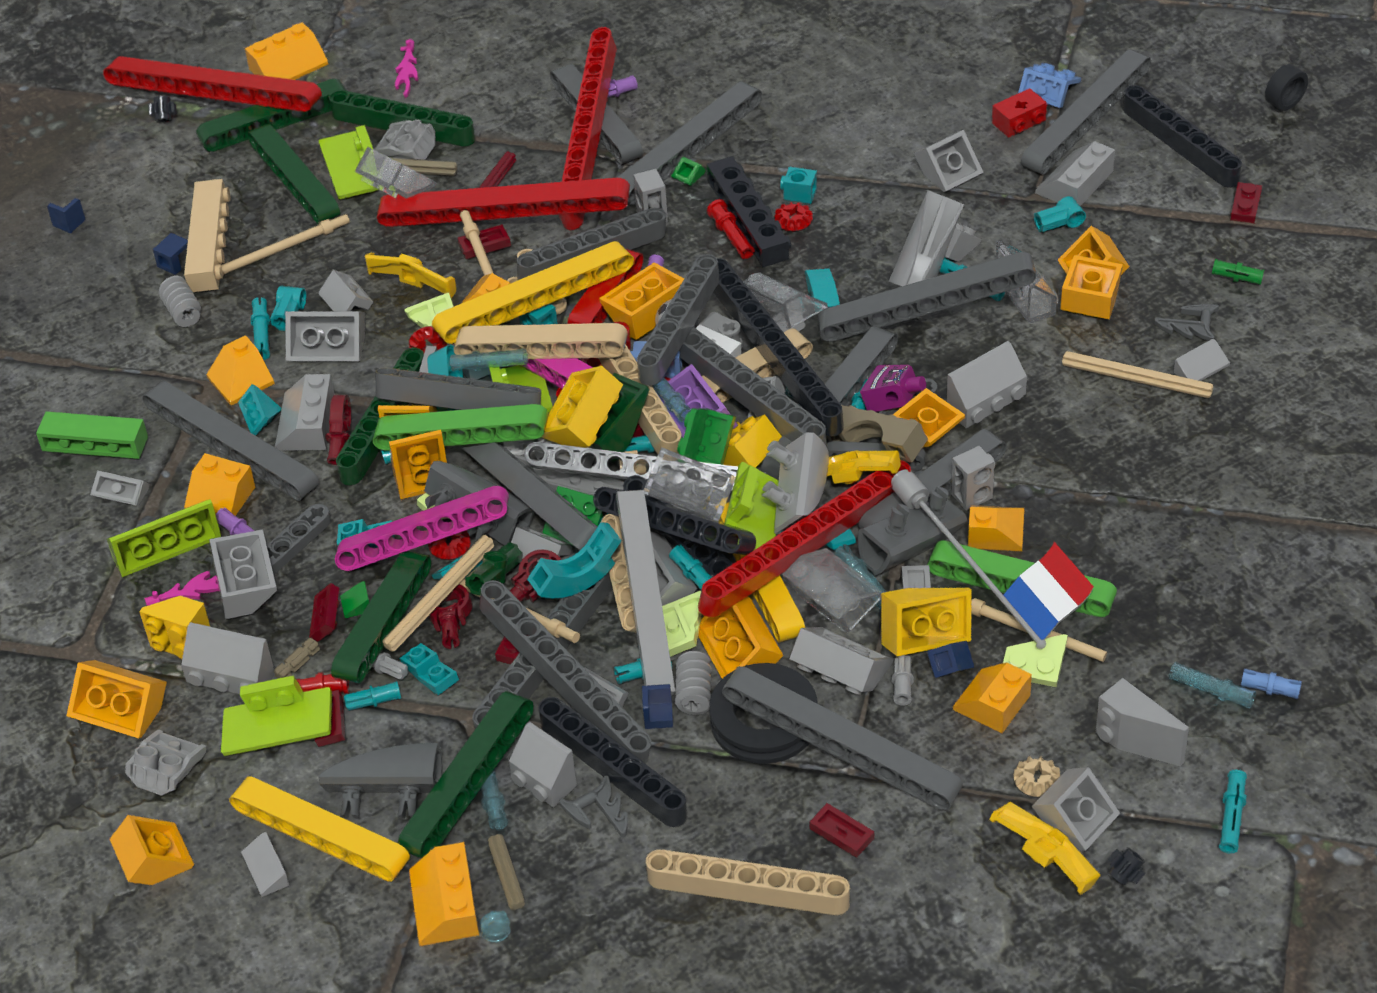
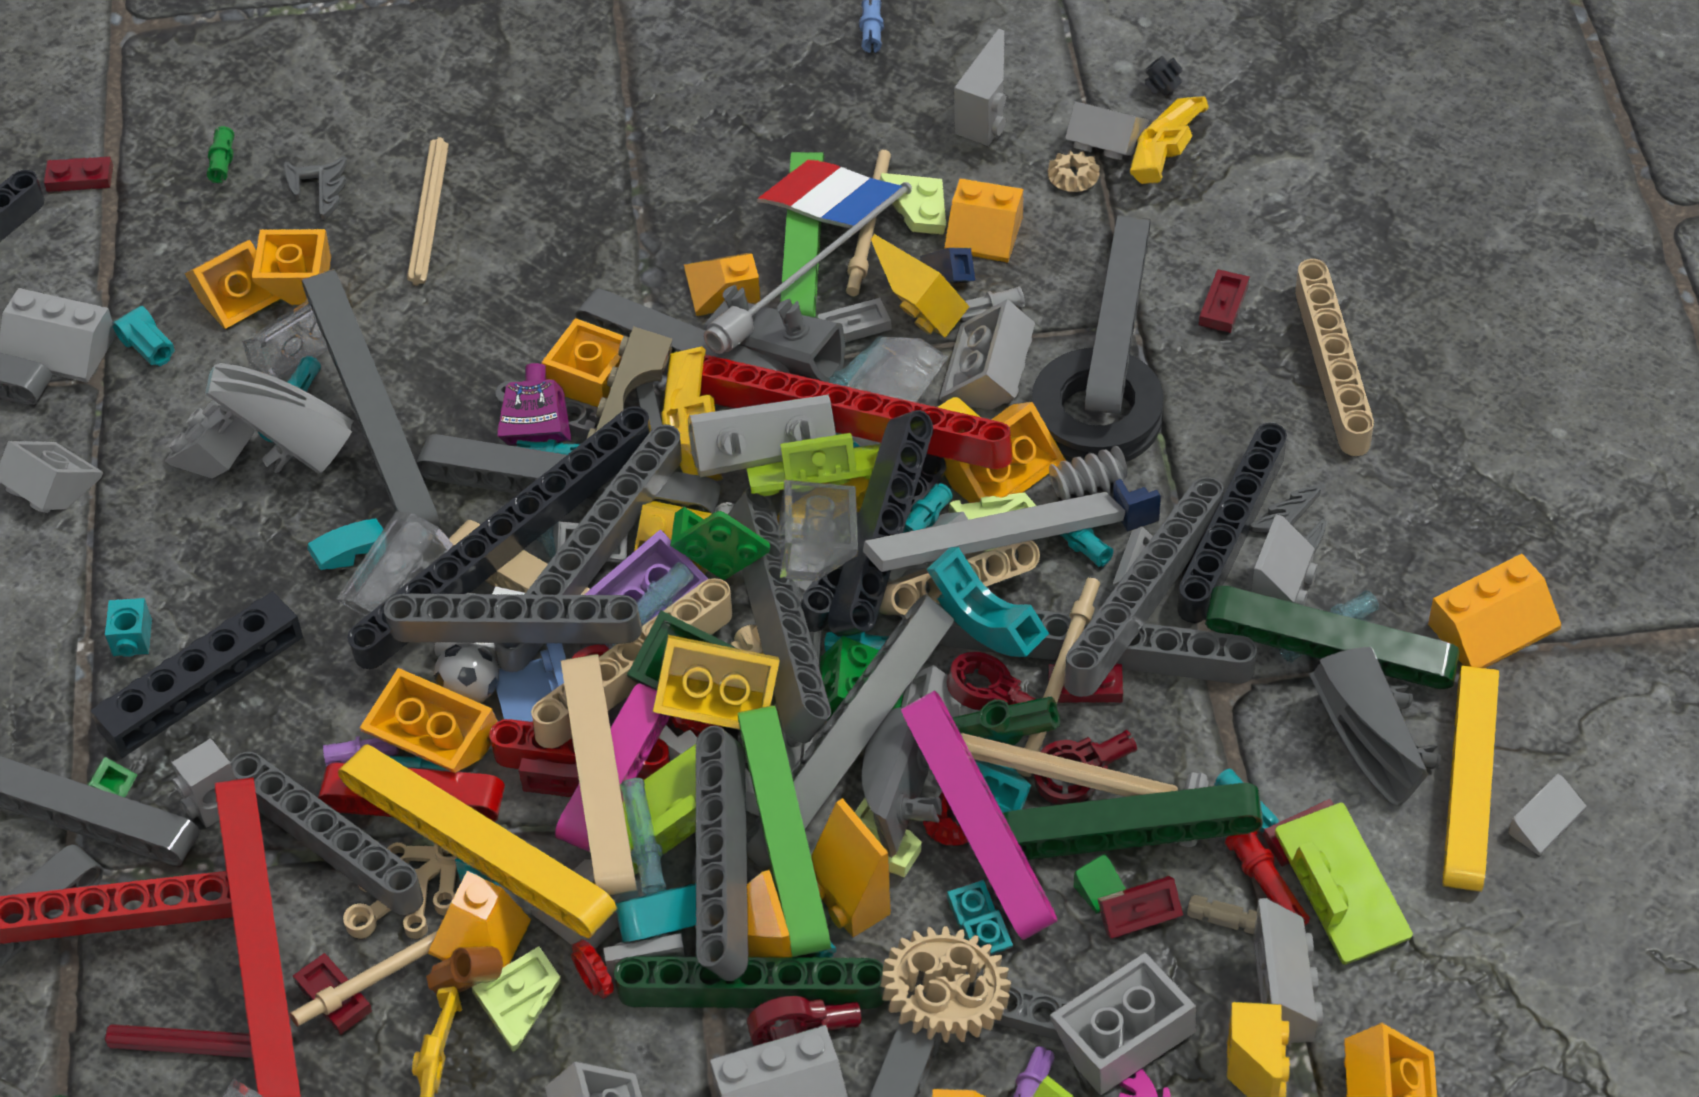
camera: 110 degrees left, 5 degrees up
(150, 850) = (1601, 941): light orange slope -> none
(162, 762) = (1462, 987): light grey slope -> none
(292, 489) = (945, 981): none -> tan gear
(428, 669) = (1176, 755): teal slope -> none
(454, 285) = (466, 968): none -> dark orange piece
(495, 926) = (1498, 554): clear light blue tile -> none
(506, 872) = (1427, 575): dark tan axle -> none
(726, 222) = (226, 693): red pin -> none
(801, 219) = (175, 625): red gear -> none
(972, 477) = (673, 291): light grey brick -> none
(986, 384) = (501, 326): light grey slope -> none
(1201, 361) = (392, 160): light grey slope -> none
(1222, 688) = (895, 55): clear light blue pin -> none
(1234, 802) = (1053, 21): teal pin -> none

